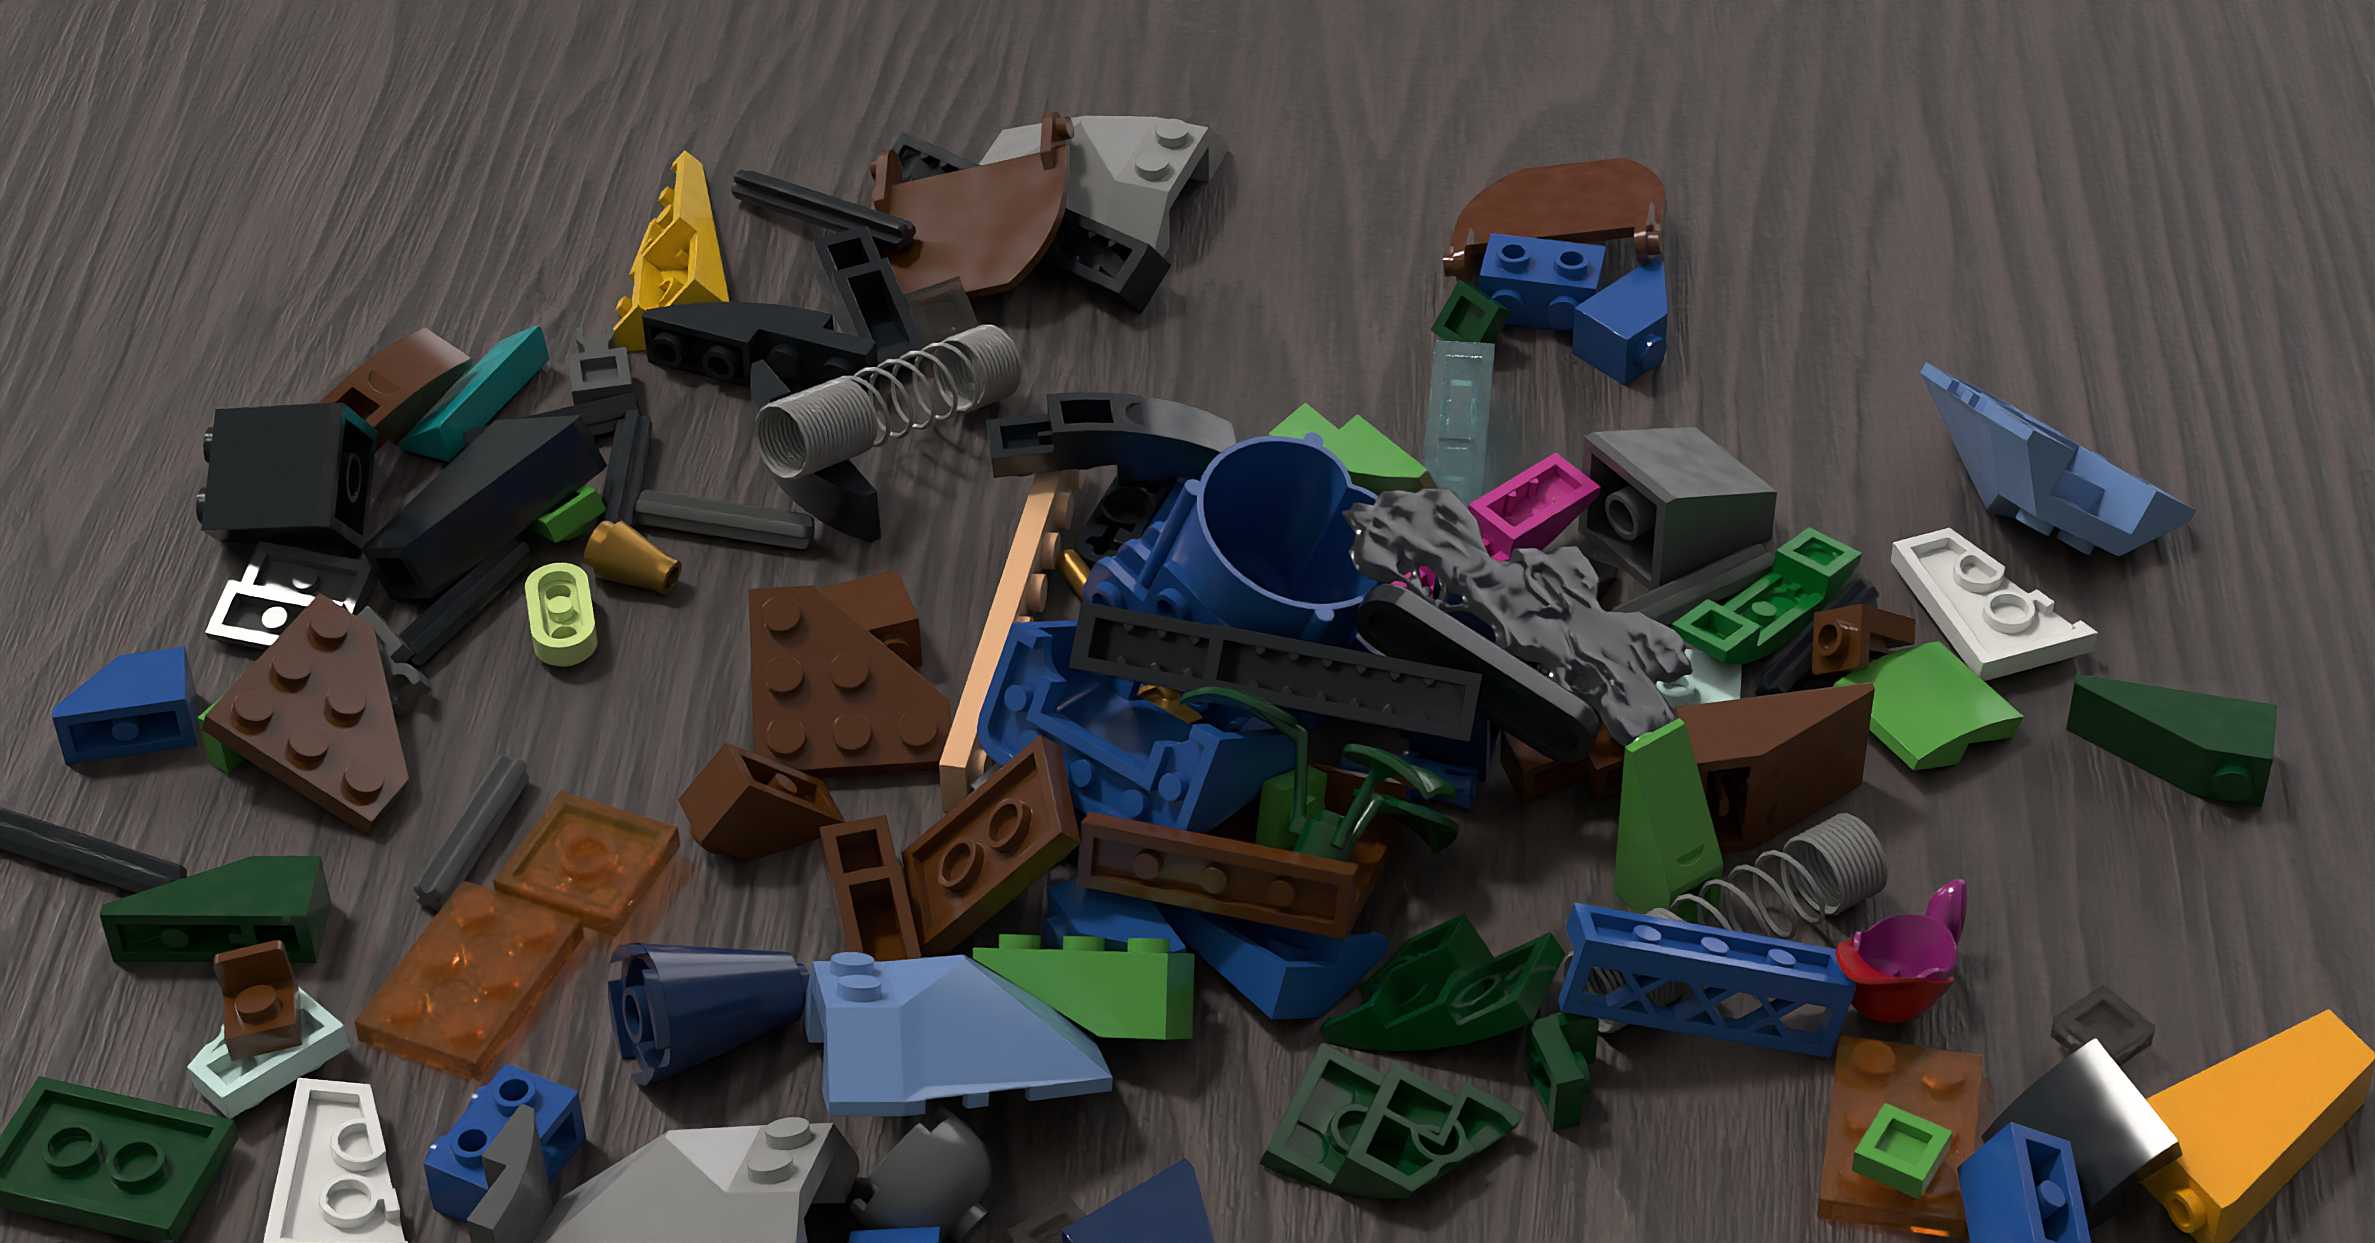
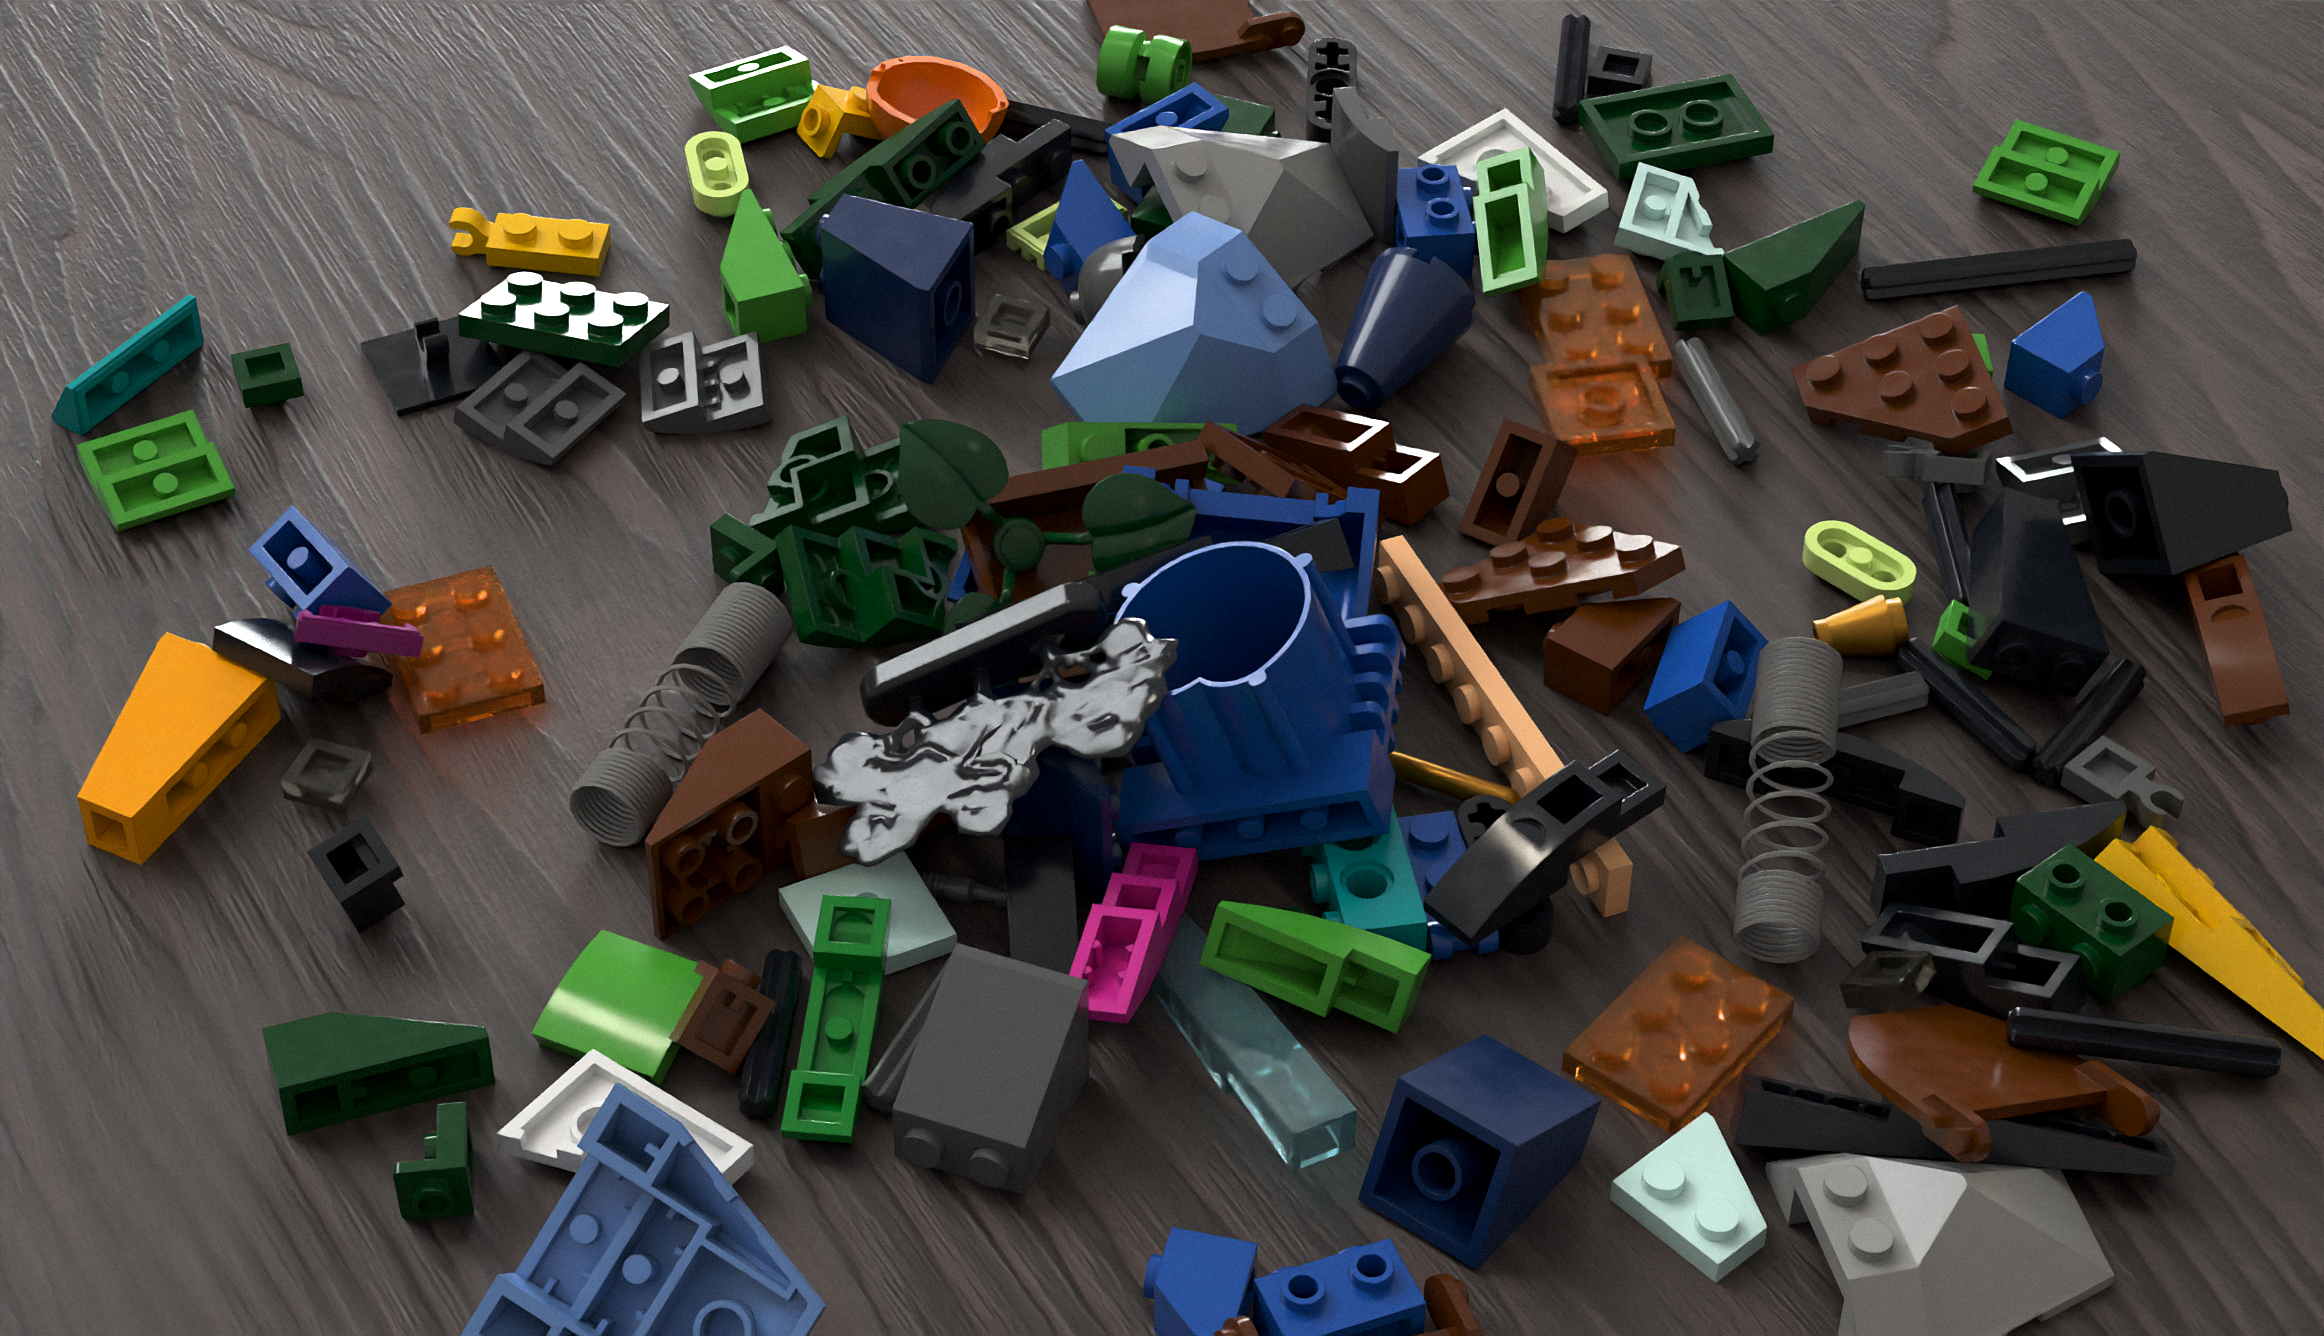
camera: 145 degrees right, 0 degrees up
(258, 1000) = (1680, 207): reddish brown bracket -> none
(343, 941) = (1696, 291): none -> dark green bracket
(442, 1072) = (1511, 221): none -> bright green slope
(478, 395) = (2192, 719): teal slope -> none
(768, 261) = (2090, 912): none -> dark green brick
(823, 545) = (1705, 675): none -> blue brick
(1135, 354) = (1678, 1035): none -> clear orange plate
(1220, 272) = (1694, 1199): none -> light aqua wing
(1342, 324) = (1475, 1146): none -> dark blue slope
(1470, 316) = (1369, 1226): dark green plate -> none
(1665, 827) = (773, 682): bright green slope -> none
(1710, 958) = (658, 614): blue fence -> none
(1902, 1151) = (435, 572): bright green plate -> none
(1906, 959) = (516, 714): magenta hair -> none
(2046, 1106) = (355, 632): none -> magenta plate
(2124, 876) = (359, 873): none -> black brick
(2156, 624) = (445, 1179): none -> dark green bracket

